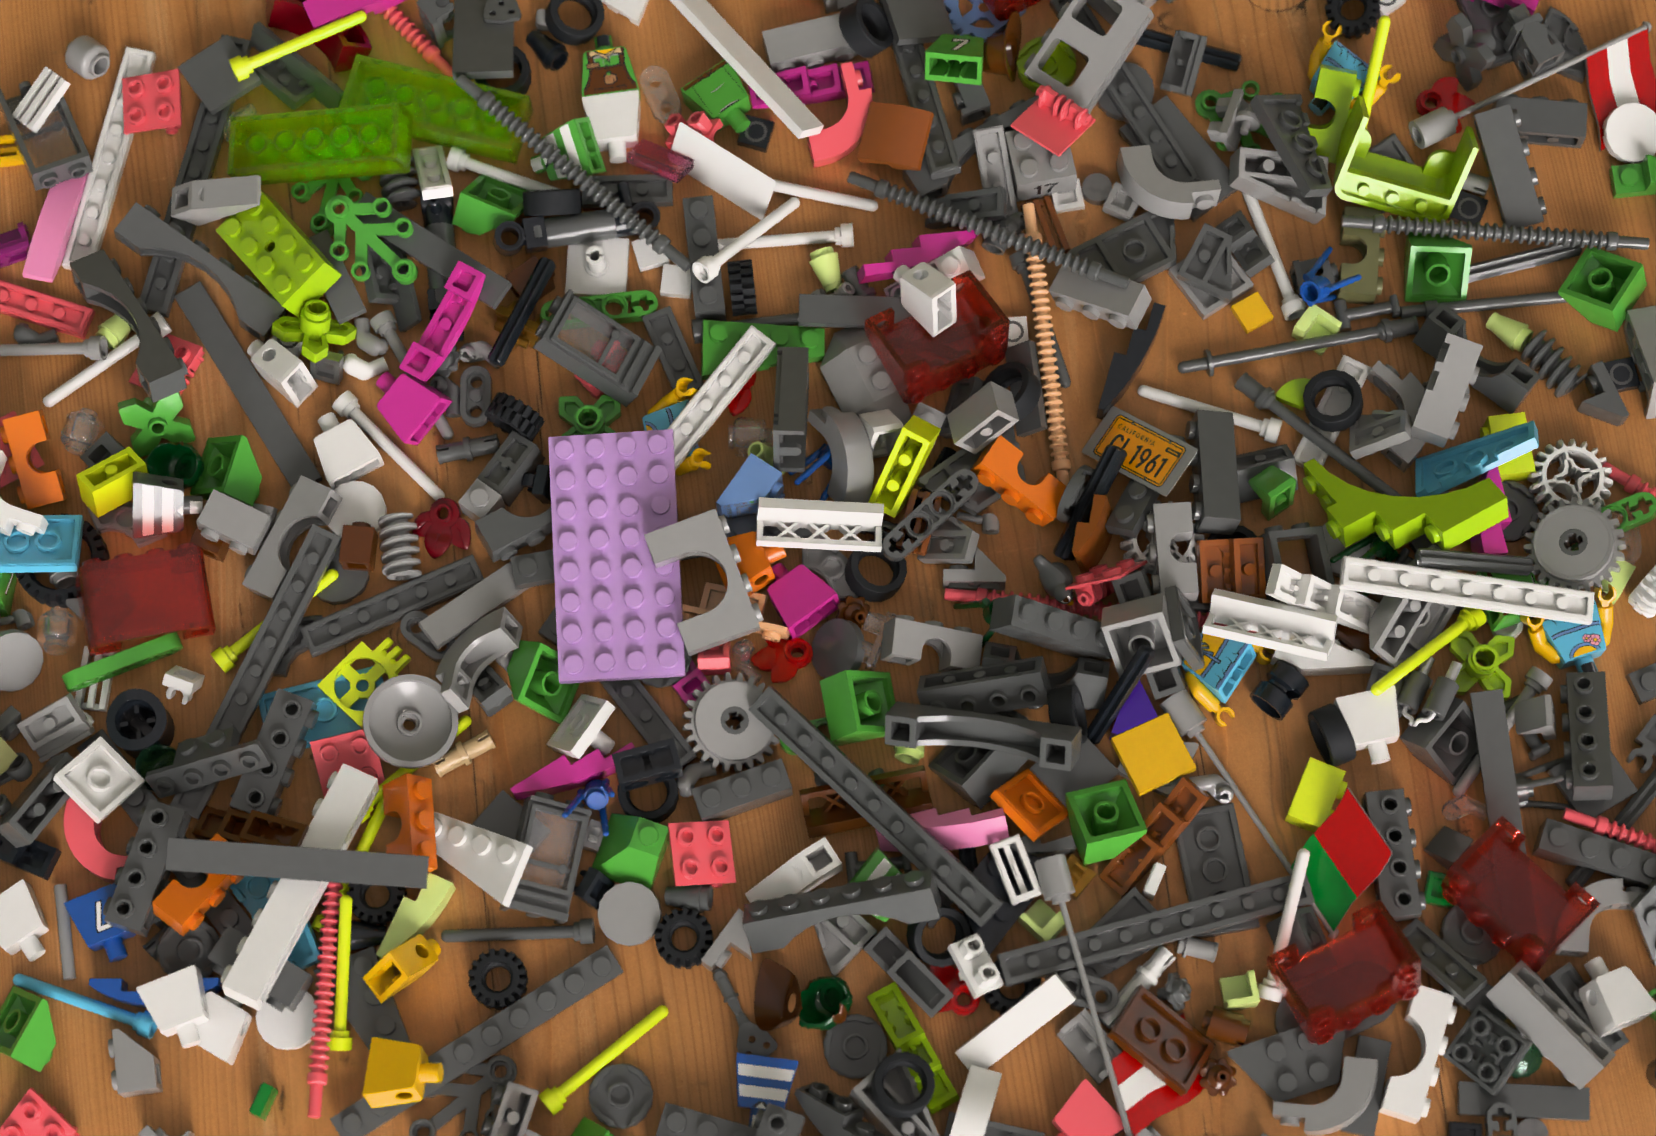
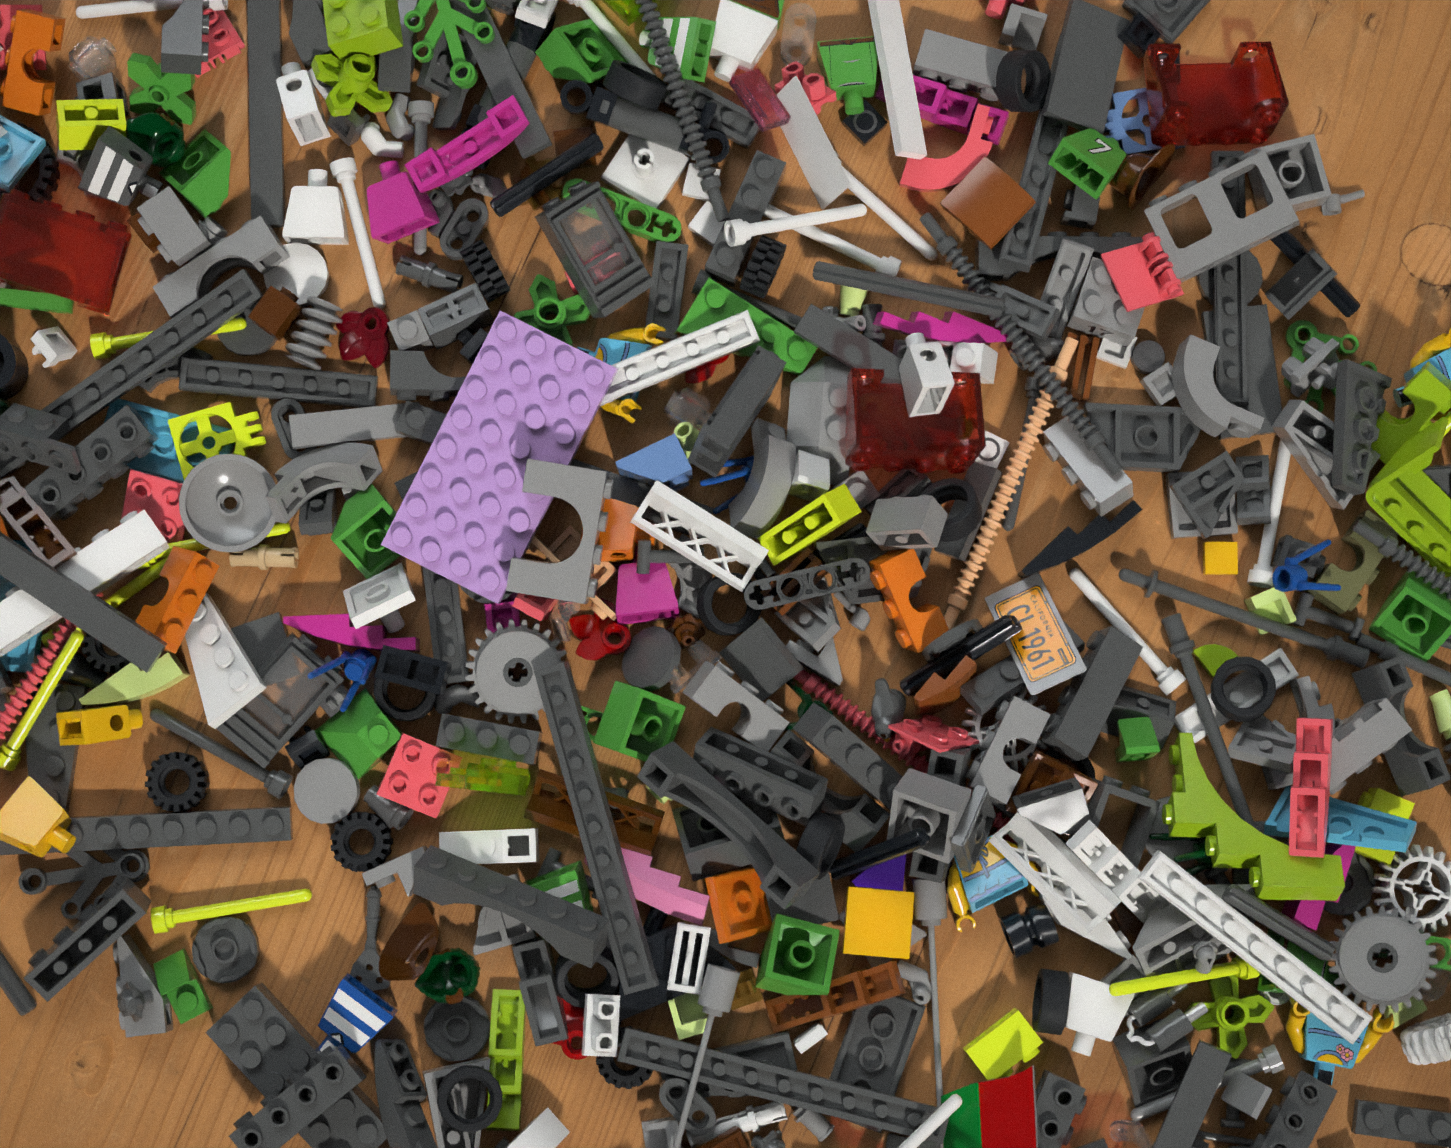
camera: 25 degrees right, 10 degrees up
(760, 820) = (488, 776): none -> clear neon green plate
(786, 567) = (646, 556): none -> dark grey piece
(871, 237) = (908, 289): none -> dark grey axle
(929, 595) = (761, 659): none -> dark grey tile
(1016, 1023) = (608, 1097): white tile -> none
(1060, 64) = (1180, 221): lime tile -> none
(1241, 570) = (1055, 806): none -> slope
(1431, 618) = (1205, 953): none -> light grey arm
(1432, 437) = (1310, 787): none -> coral slope

